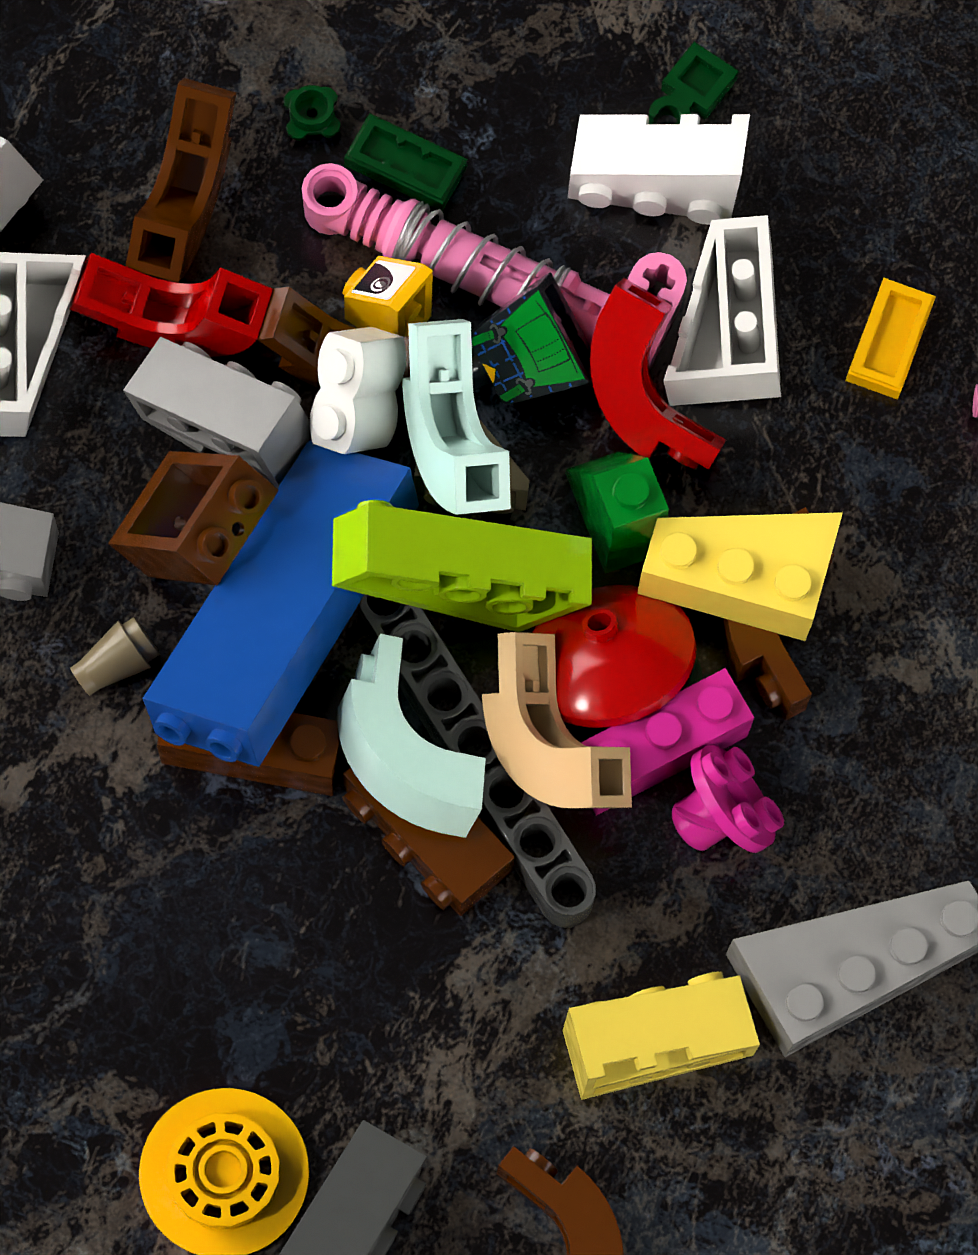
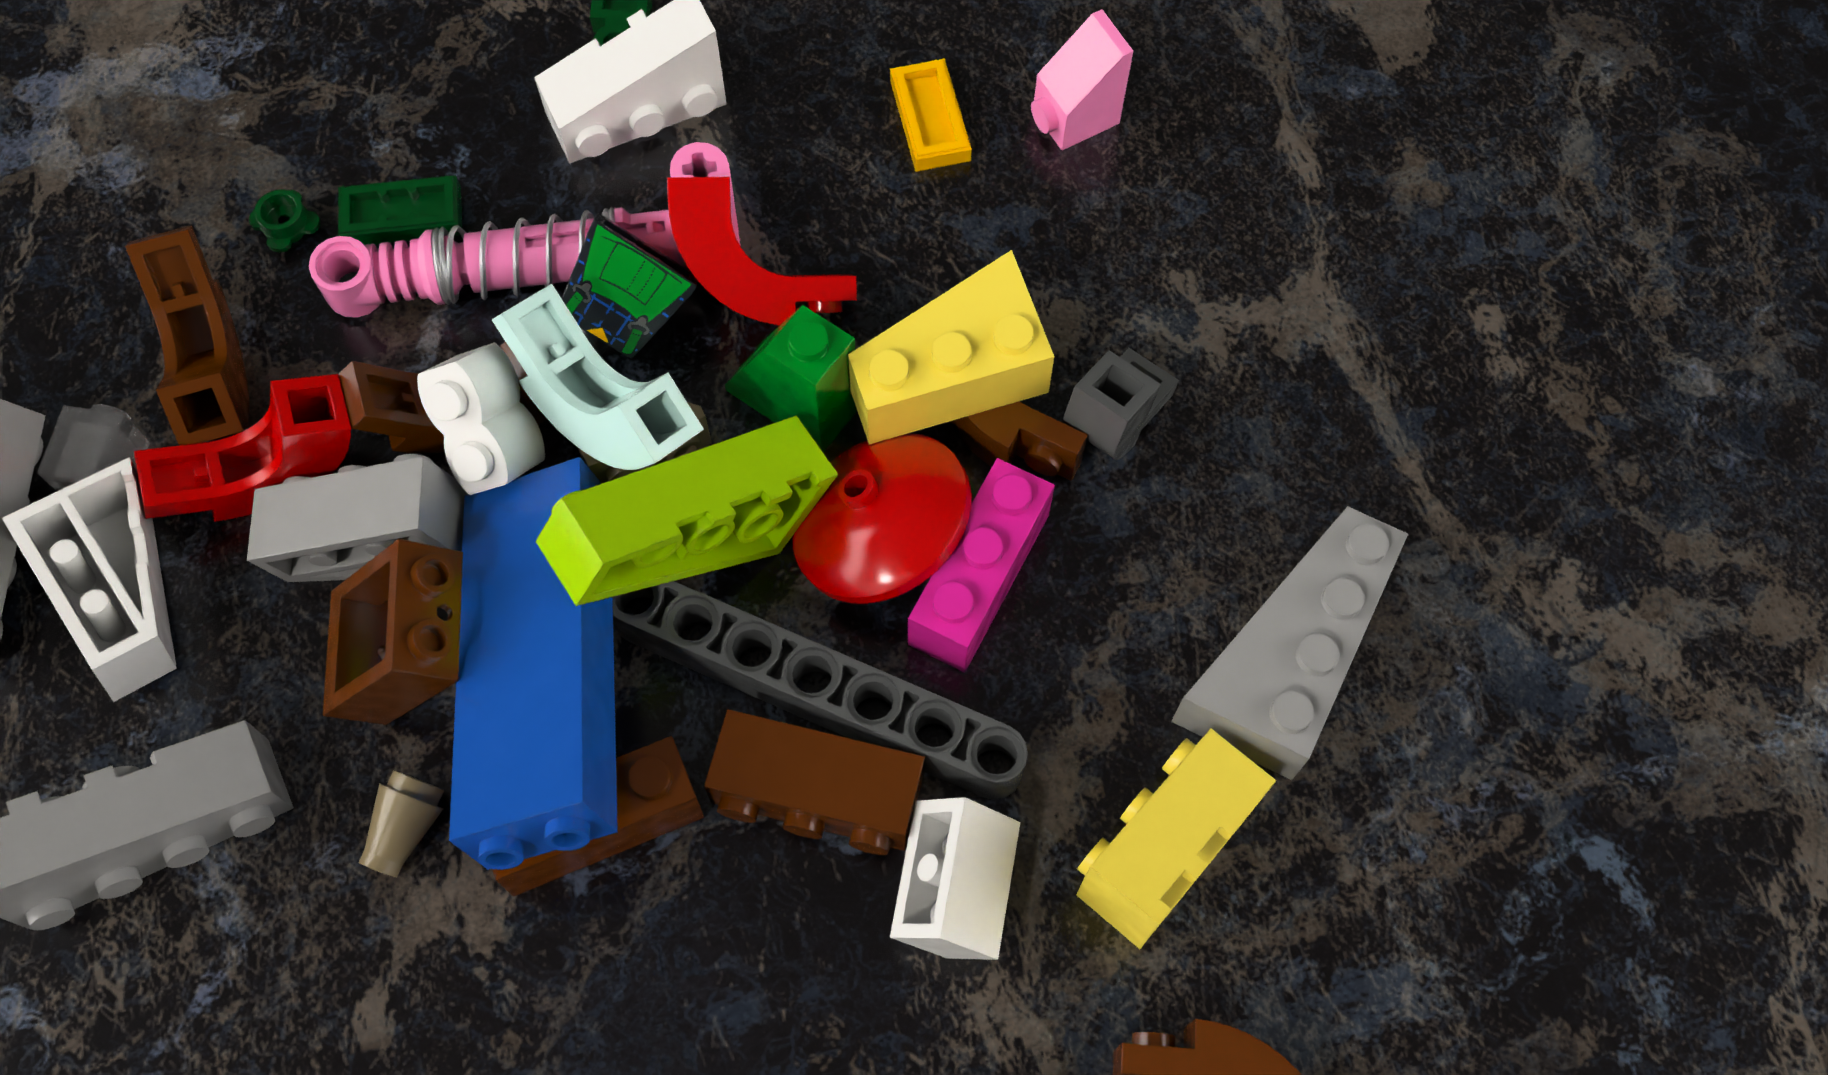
camera: 30 degrees left, 5 degrees down
(61, 224) = (88, 443): none -> clear brick
(389, 295) = (457, 318): yellow slope -> none
(393, 762) = (750, 738): light aqua arch -> none
(478, 958) = (956, 879): none -> white brick
(534, 740) = (876, 637): tan arch -> none
(726, 803) = (1079, 584): dark pink plate -> none
(730, 324) = (789, 167): white wedge -> none
(860, 682) = (1118, 401): none -> dark grey brick

